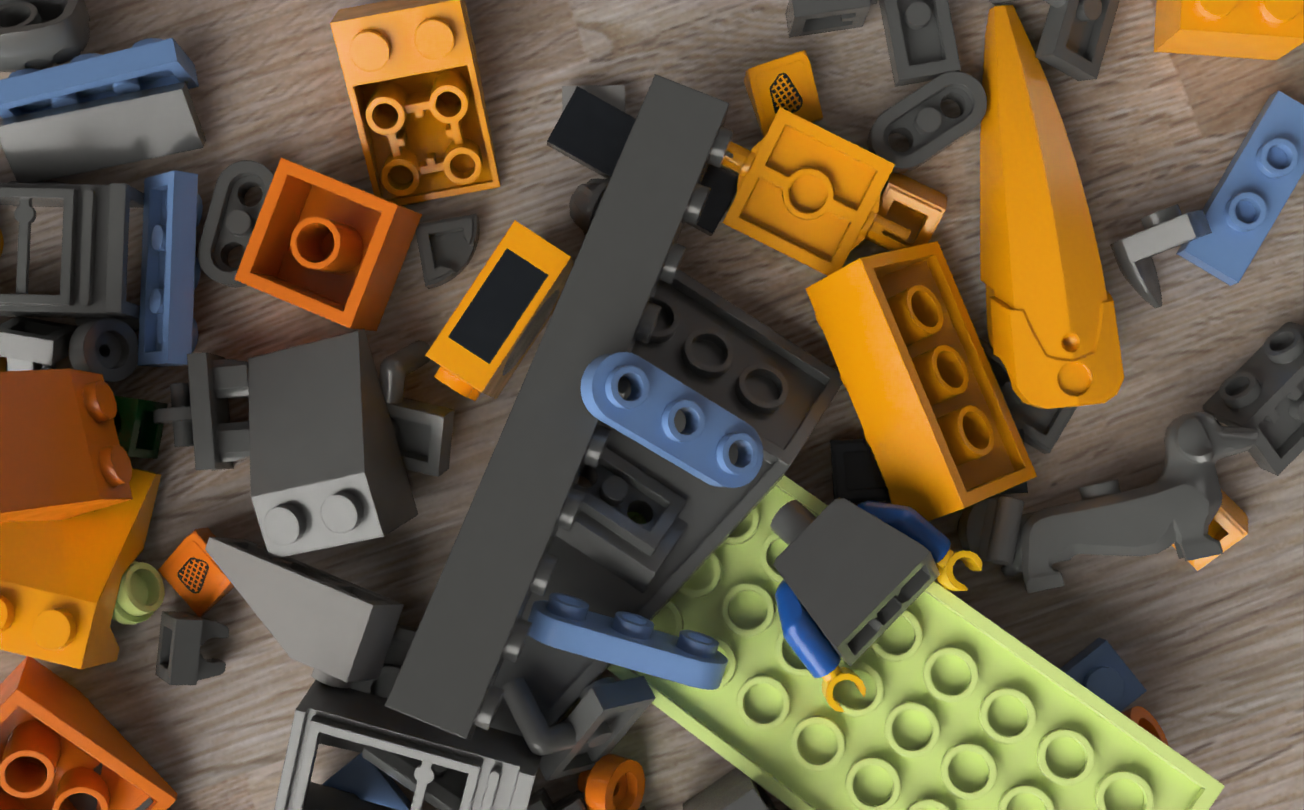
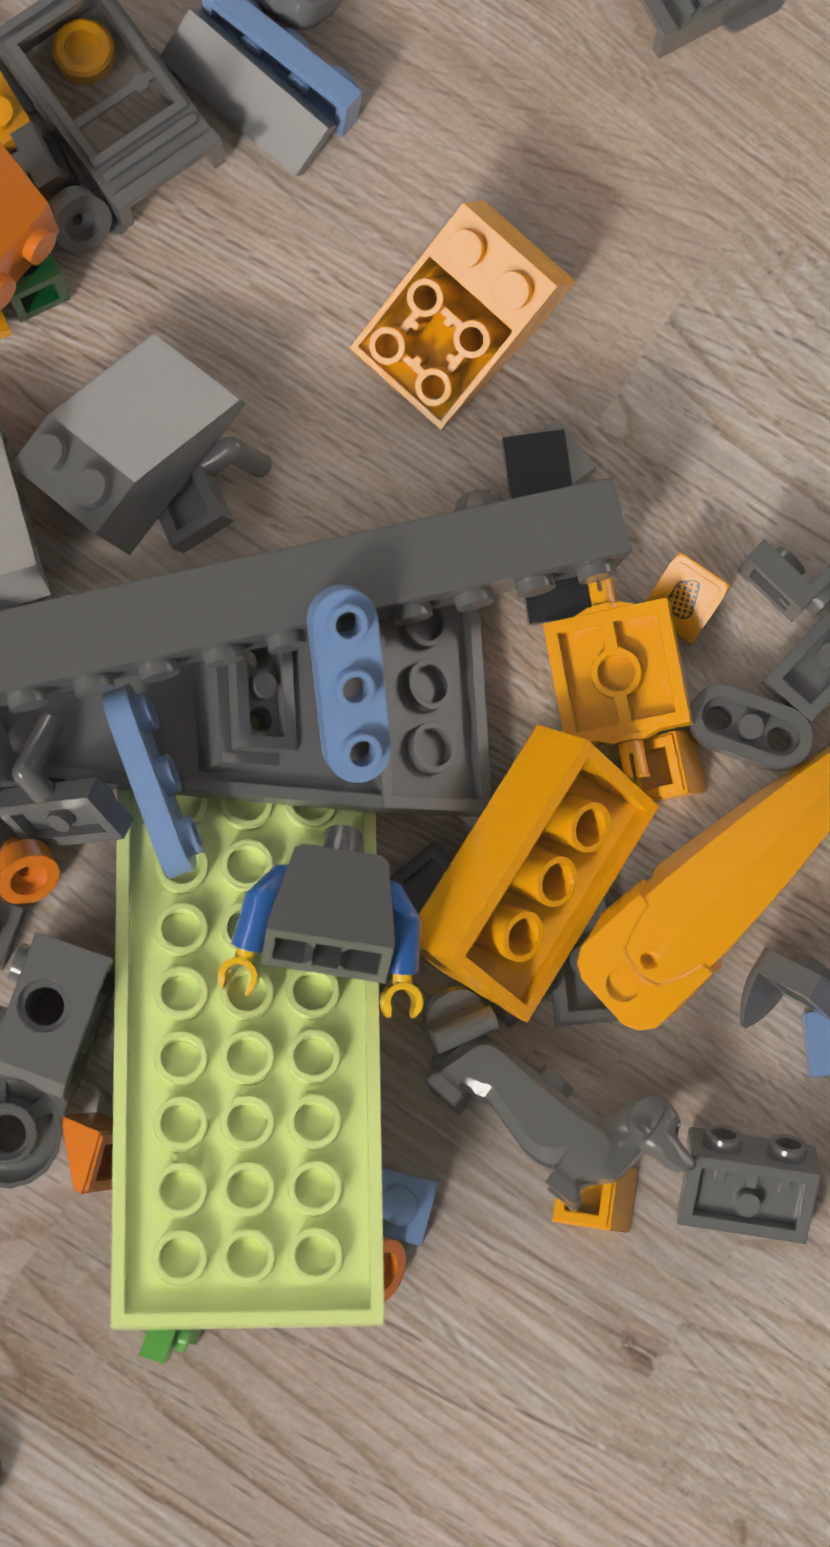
camera: 45 degrees right, 5 degrees down
(169, 269) = (178, 222): medium blue plate -> none
(202, 411) = (85, 329): dark grey hips -> none
(230, 220) = (254, 247): dark grey plate -> none
(327, 246) = (289, 330): orange brick -> none
(446, 247) = (359, 423): dark grey tile -> none
(501, 314) = (331, 497): brick -> none

